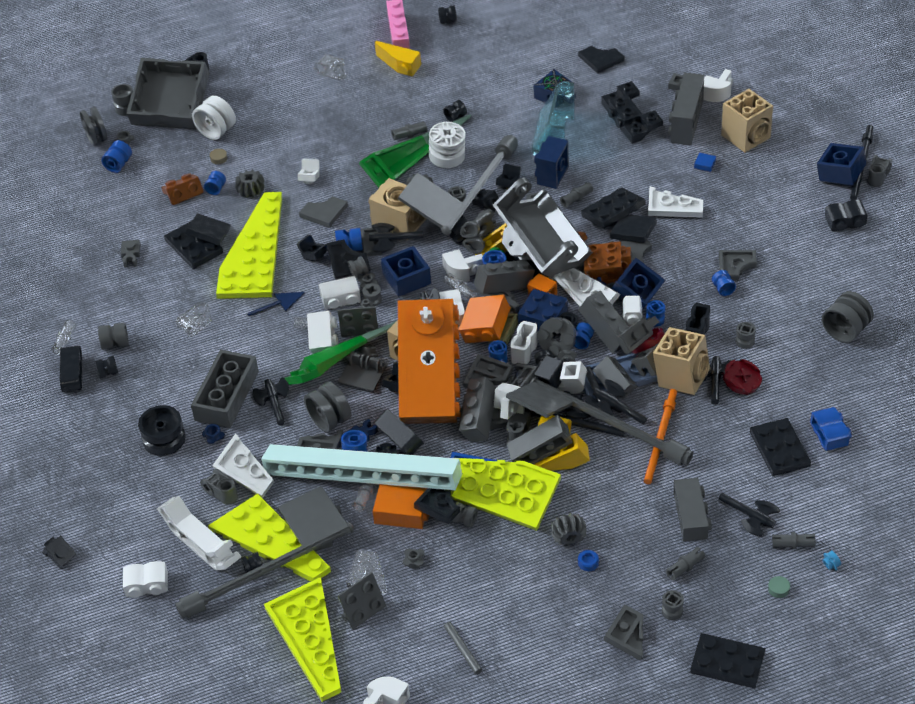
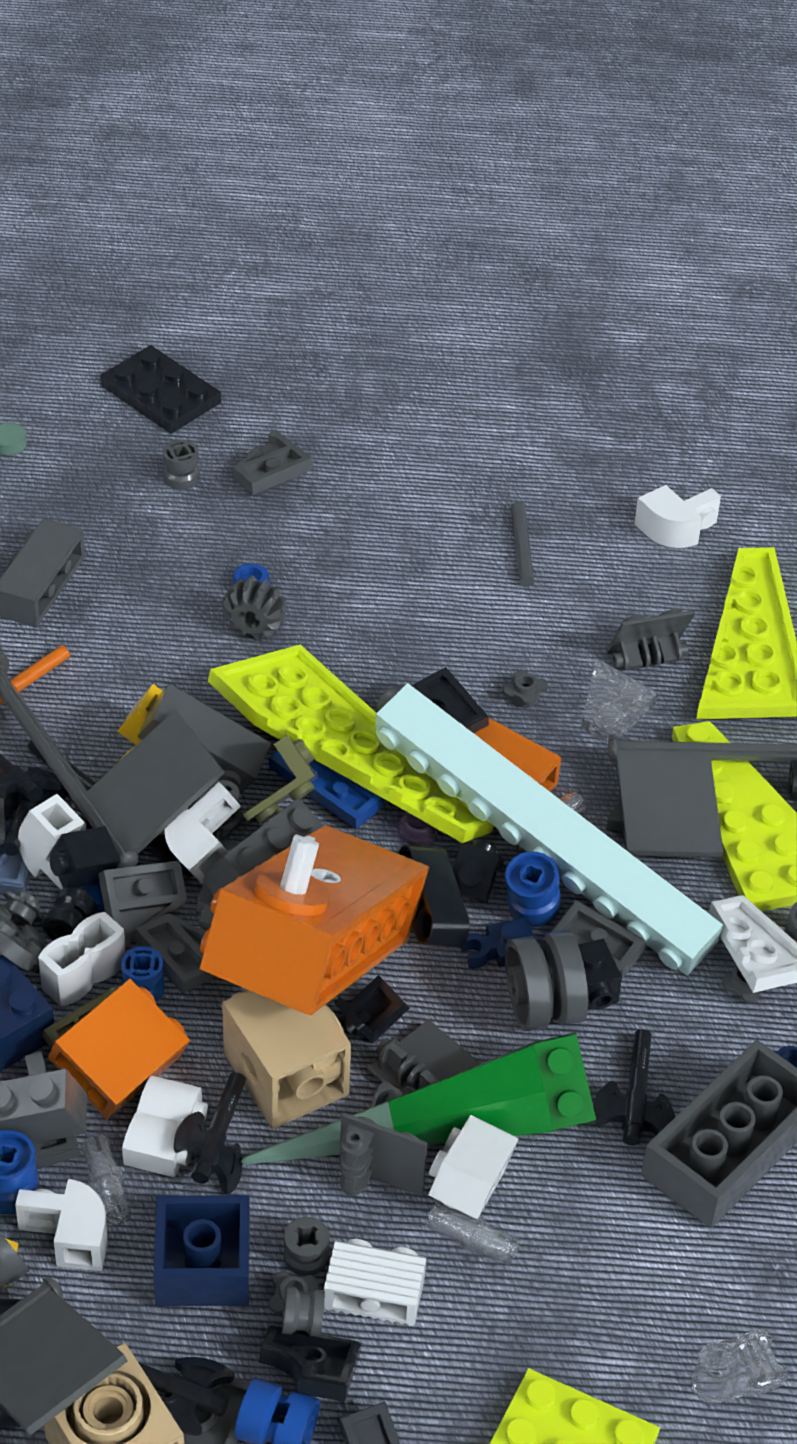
camera: 160 degrees left, 0 degrees up
(285, 299) = (499, 1349): dark blue piece -> none
(311, 427) = (601, 974): none -> black bracket
(488, 436) = (297, 758): none -> olive bracket
(685, 563) = (113, 511): dark grey pin -> none

